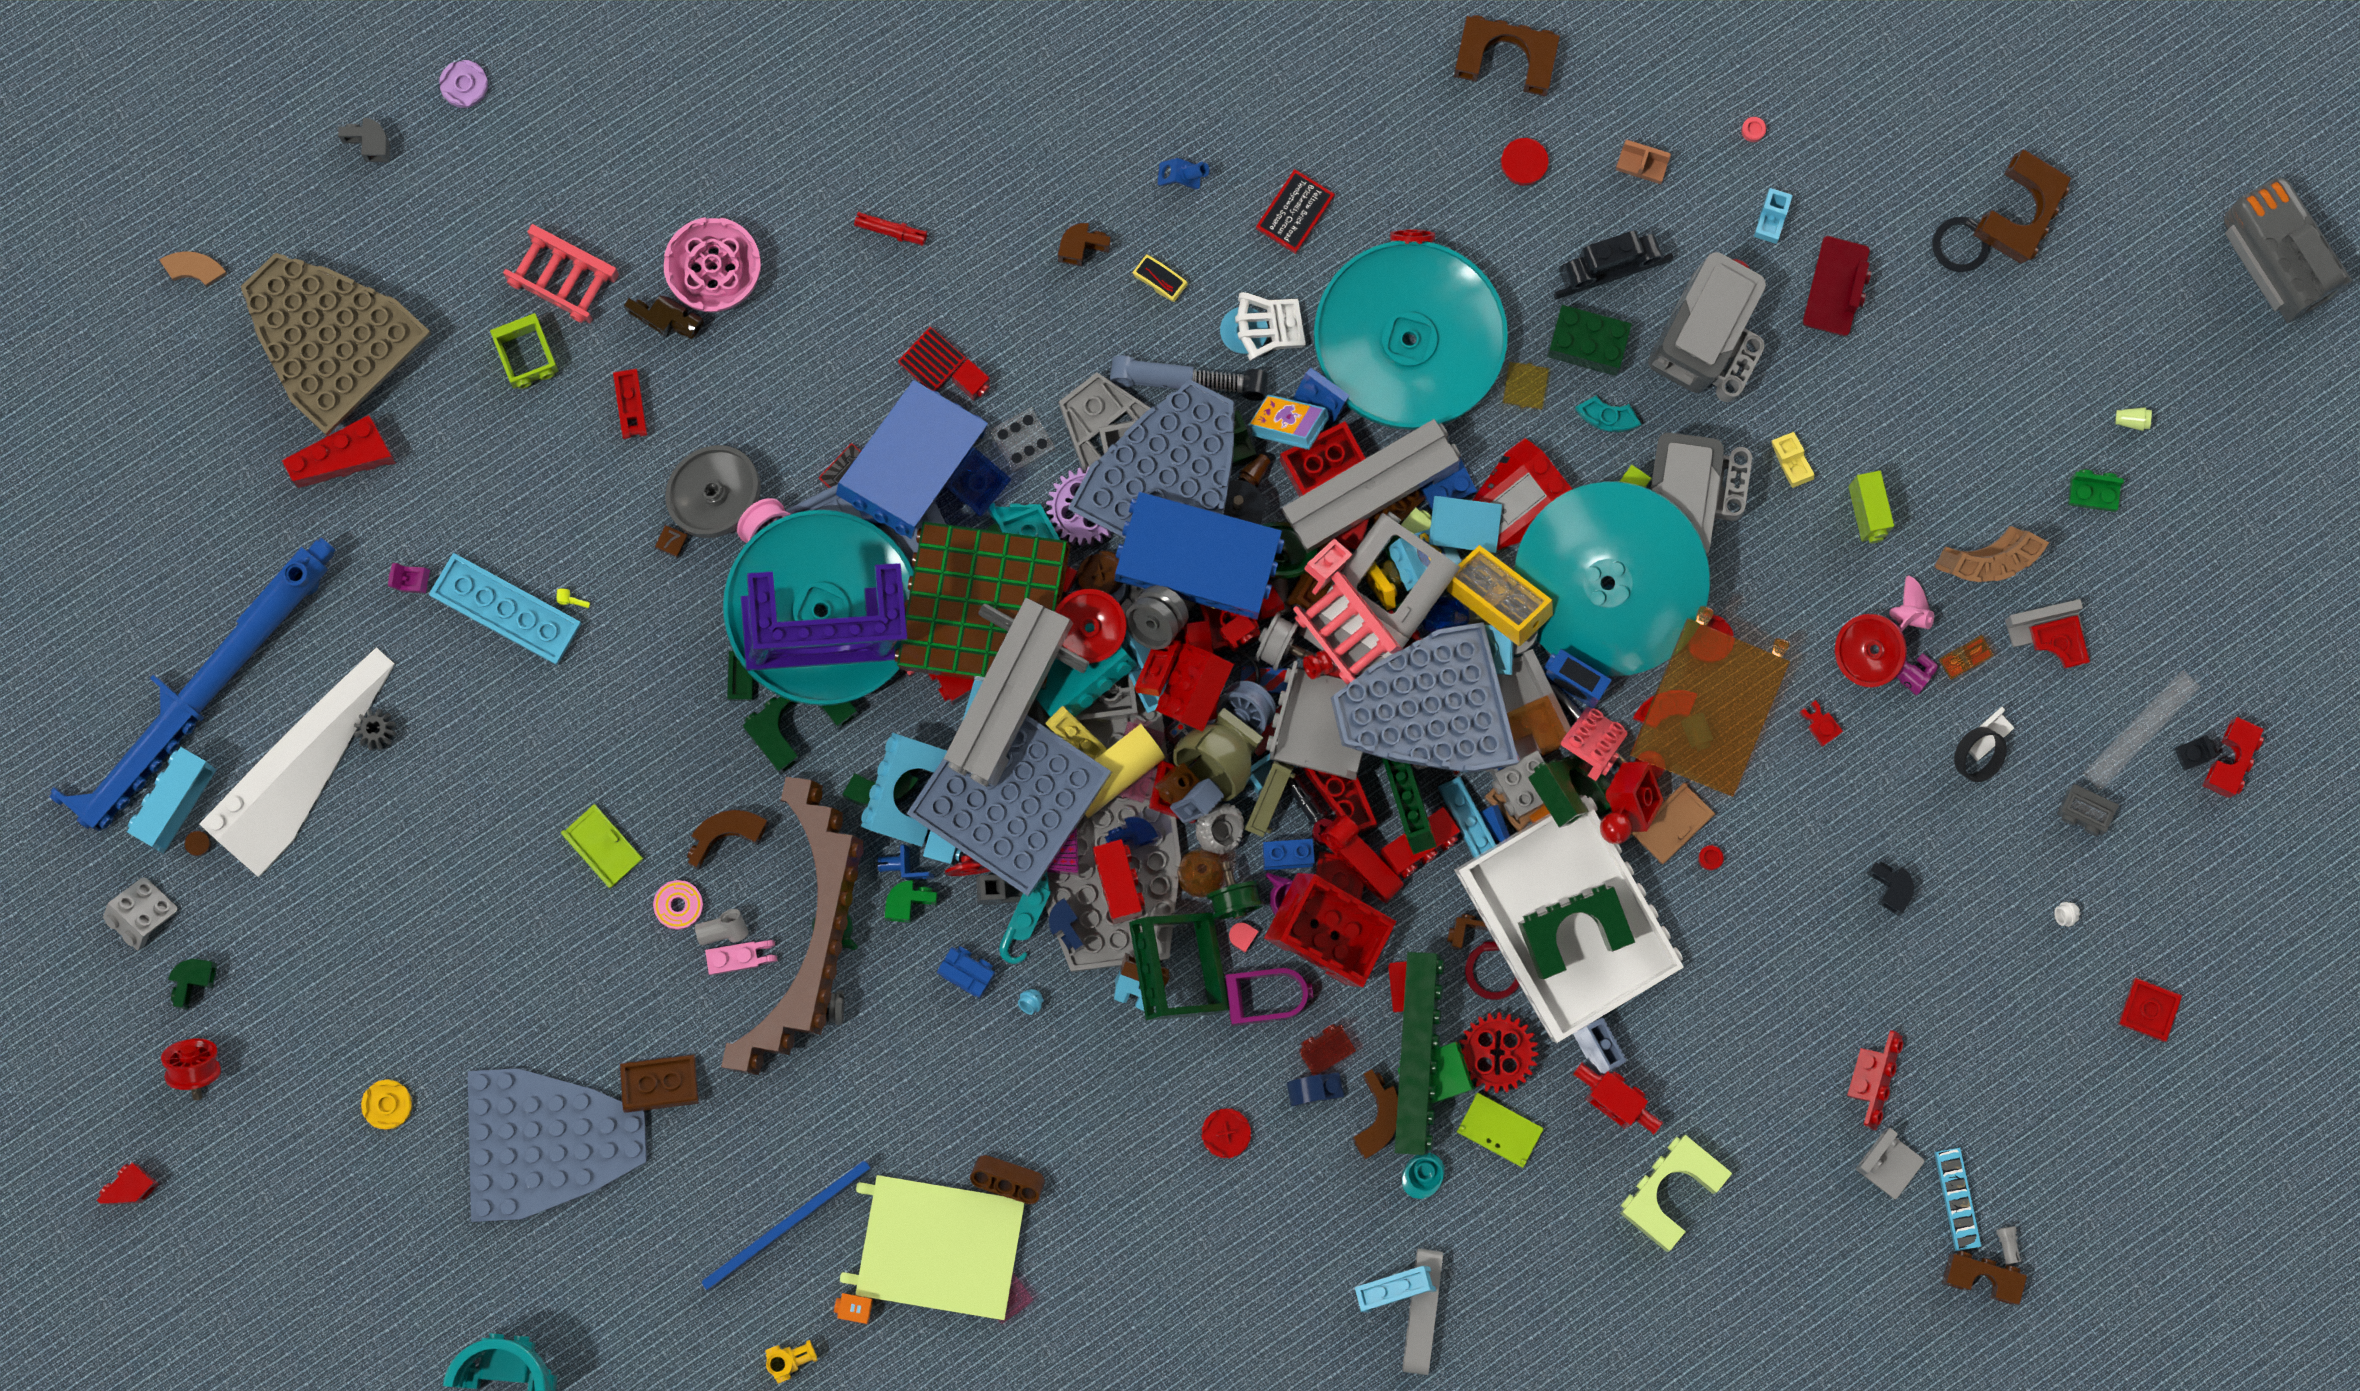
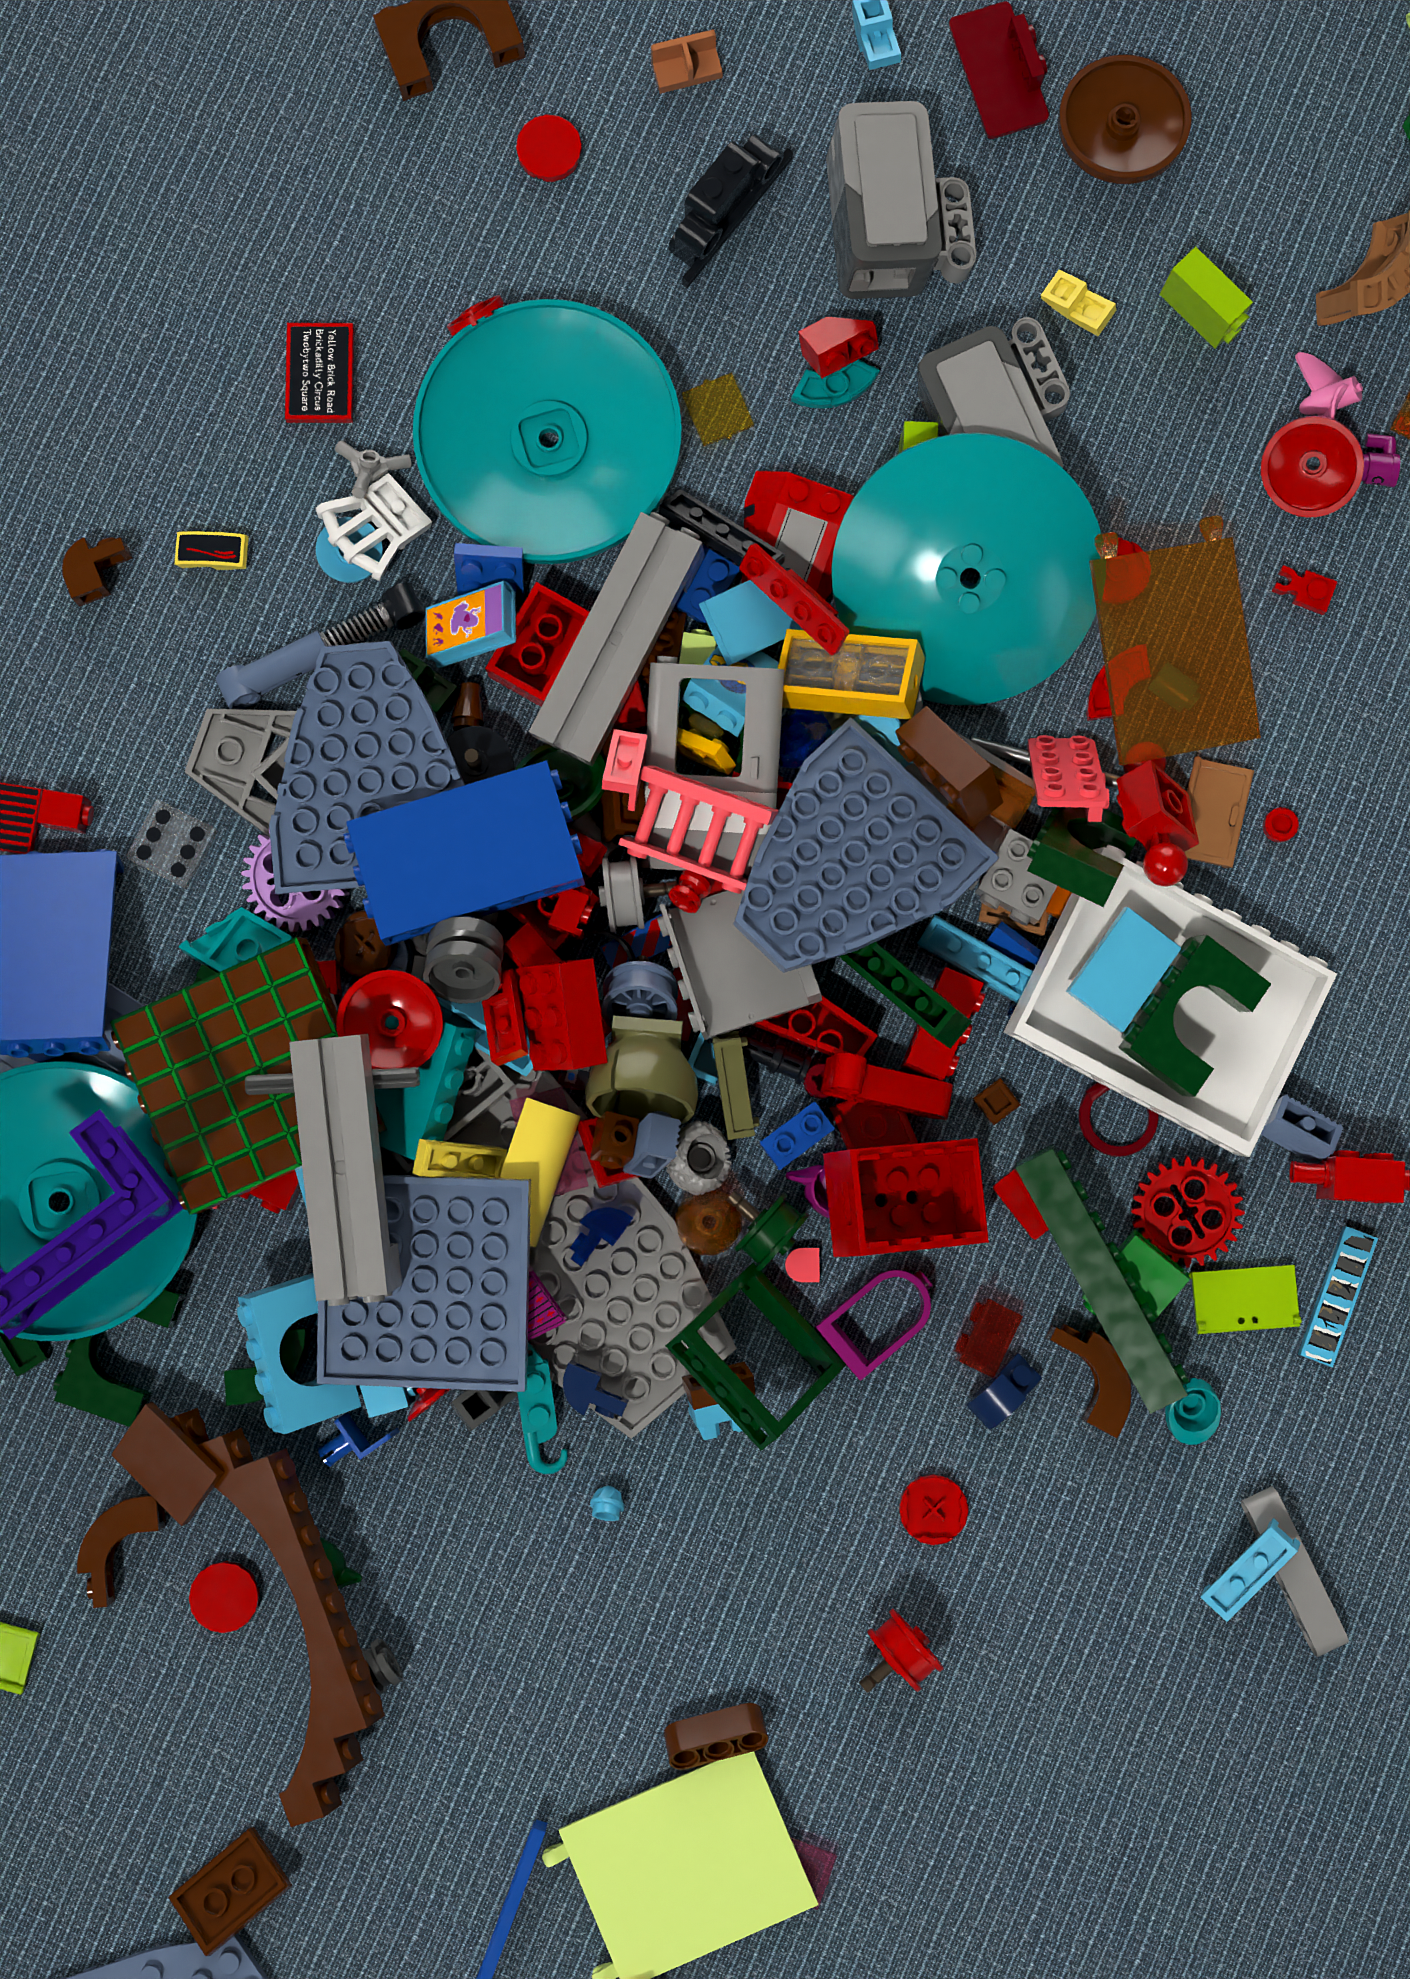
camera: 30 degrees left, 5 degrees up
(663, 905) = (98, 1670): bright pink tile -> none
(728, 926) = (191, 1648): light grey piece -> none
(738, 957) = (227, 1677): bright pink hinge -> none
(766, 908) = (224, 1597): none -> red tile
(786, 804) = (167, 1463): none -> reddish brown tile
(900, 901) = (377, 1484): green brick -> none
(966, 972) = (509, 1520): blue brick -> none
(977, 482) = (147, 929): clear blue brick -> none
(1118, 881) = (621, 1302): red brick -> none
(1152, 1200) = (903, 1651): none -> red wheel
(1183, 173) = (158, 408): blue bracket -> none
(1289, 287) = (369, 466): none -> light grey piece
(1424, 913) = (996, 1101): none -> reddish brown tile
(1456, 934) = (1050, 1102): reddish brown bracket -> none
(1477, 463) = (713, 527): none -> black tile
(1496, 529) = (795, 598): none -> red bracket
(1524, 688) = (950, 765): none -> reddish brown wedge
(1550, 876) = (1123, 969): none -> medium azure tile
(1558, 1165) = (1337, 1296): none -> tile
(1576, 678) = (998, 714): brick -> none
(1589, 340) = (757, 308): dark green brick -> none
(1624, 391) = (837, 343): none -> red slope
(1893, 365) = (1124, 119): none -> reddish brown dish

